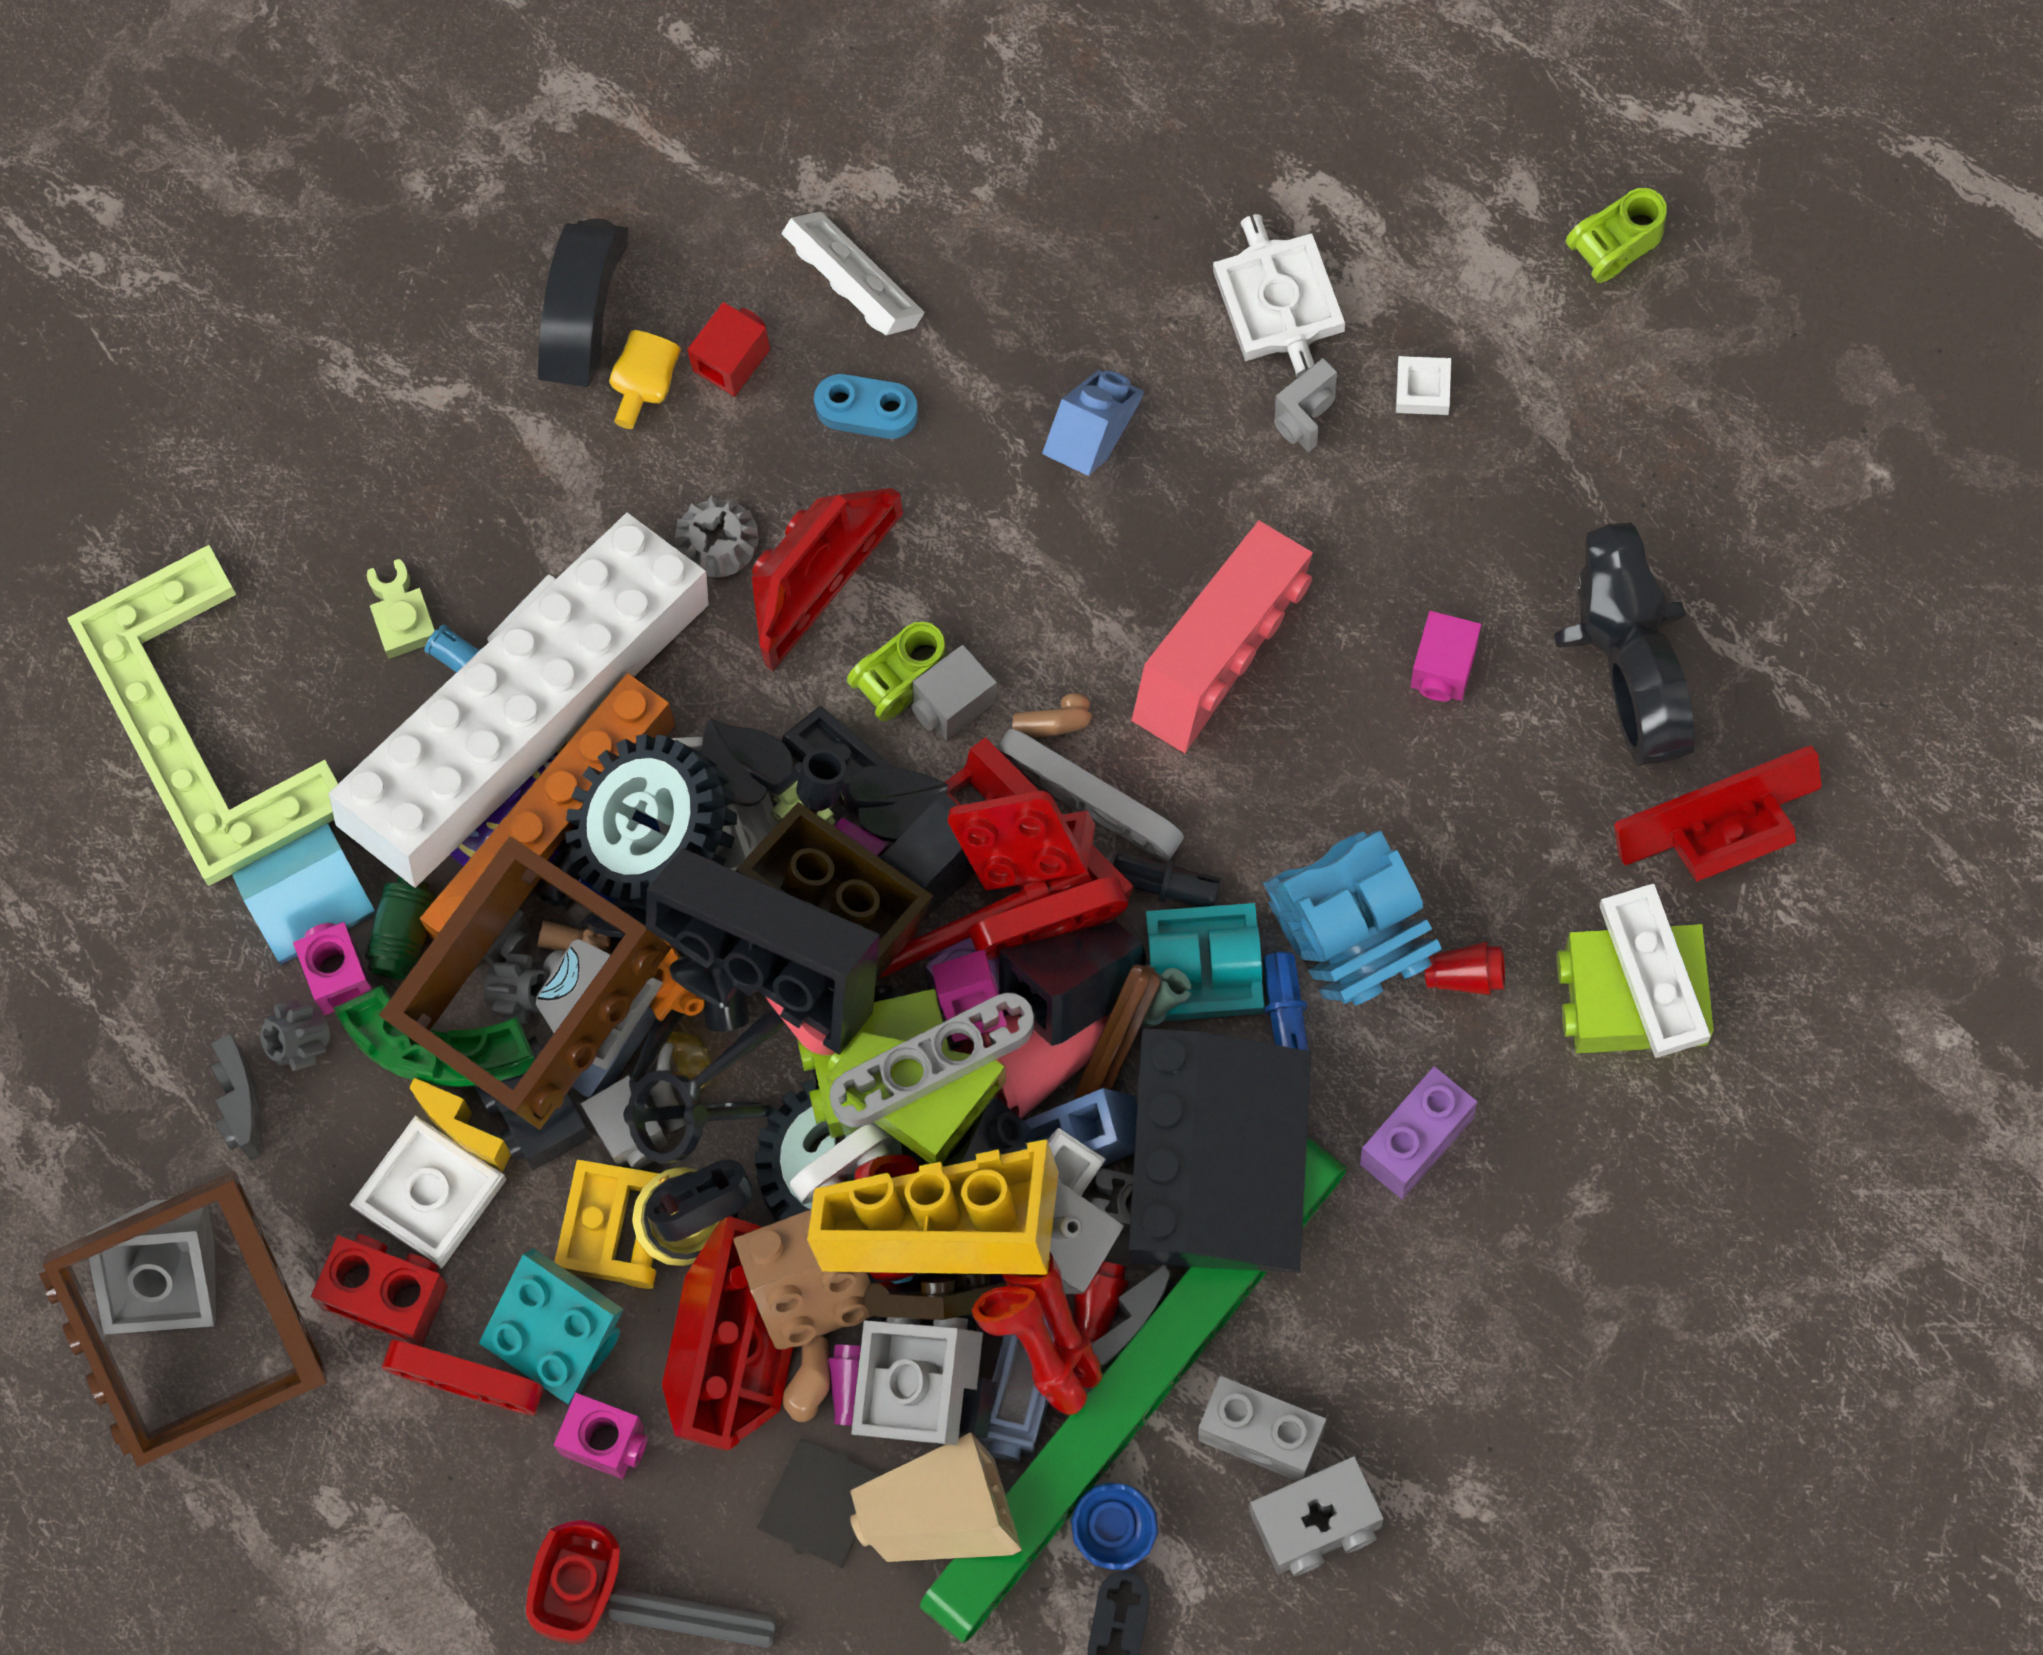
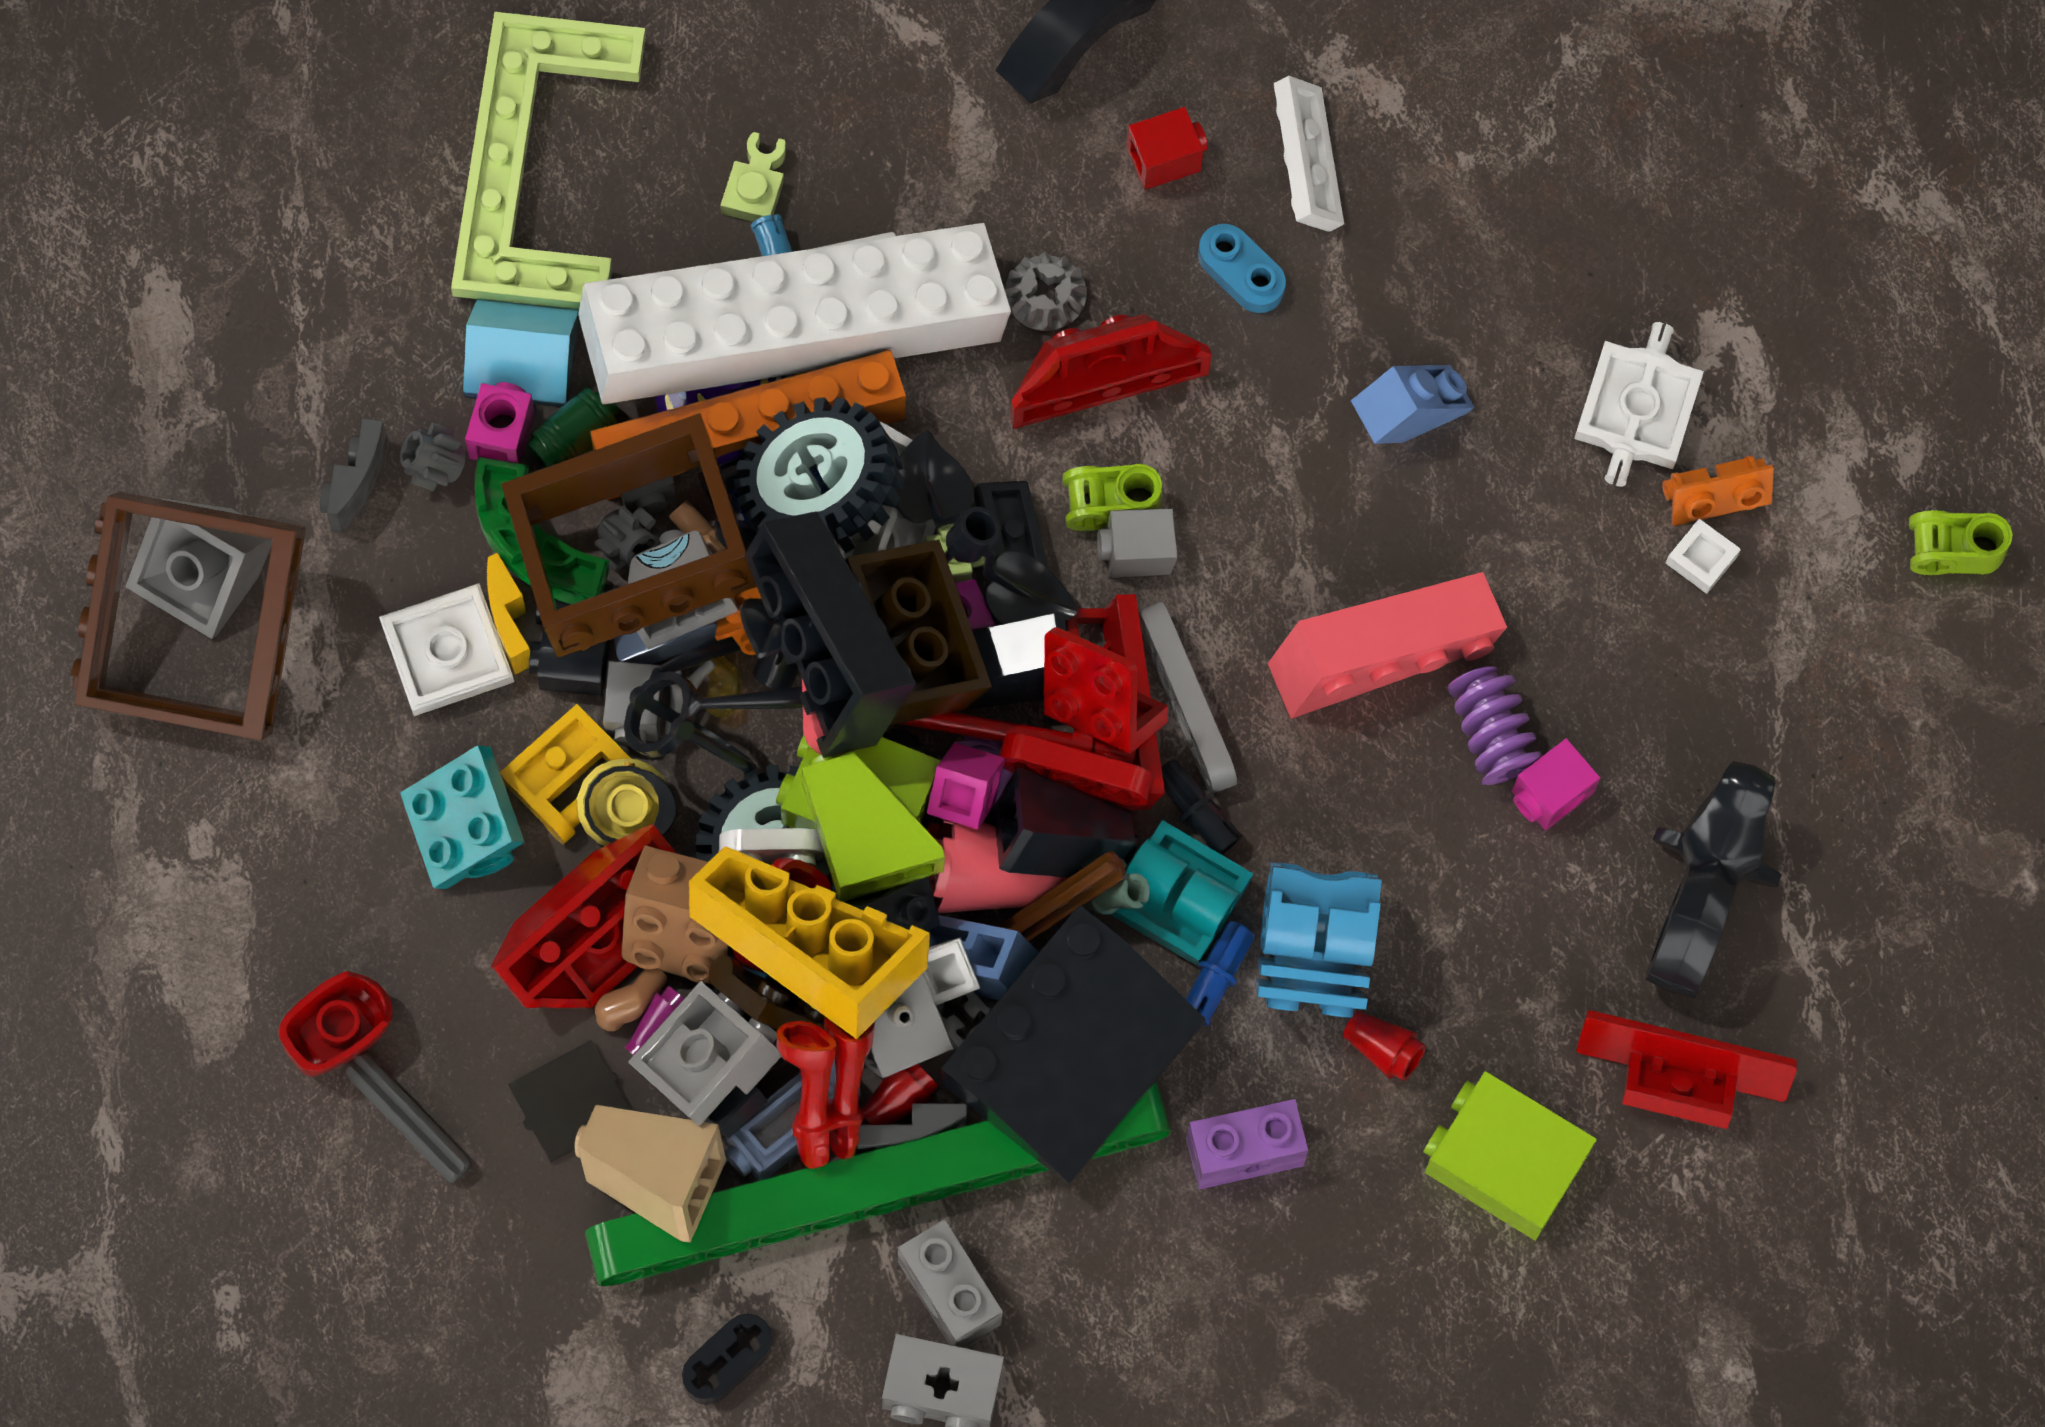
camera: 25 degrees right, 0 degrees up
(374, 1300) = (346, 703): red brick -> none
(462, 1377) = (368, 810): red beam -> none
(581, 1422) = (434, 908): dark pink brick -> none
(642, 374) = (1082, 122): yellow piece -> none
(699, 1200) = (641, 798): black beam -> none
(936, 1067) = (892, 802): light grey beam -> none
(1054, 722) = (1197, 619): medium nougat arm -> none
(1114, 1526) = (780, 1278): blue hair -> none
(1306, 396) = (1596, 499): light grey bracket -> none
(1359, 641) = (1492, 724): none -> medium lavender piece
(1409, 308) = (1737, 487): none -> orange hinge
(1654, 970) = (1527, 1147): white plate -> none

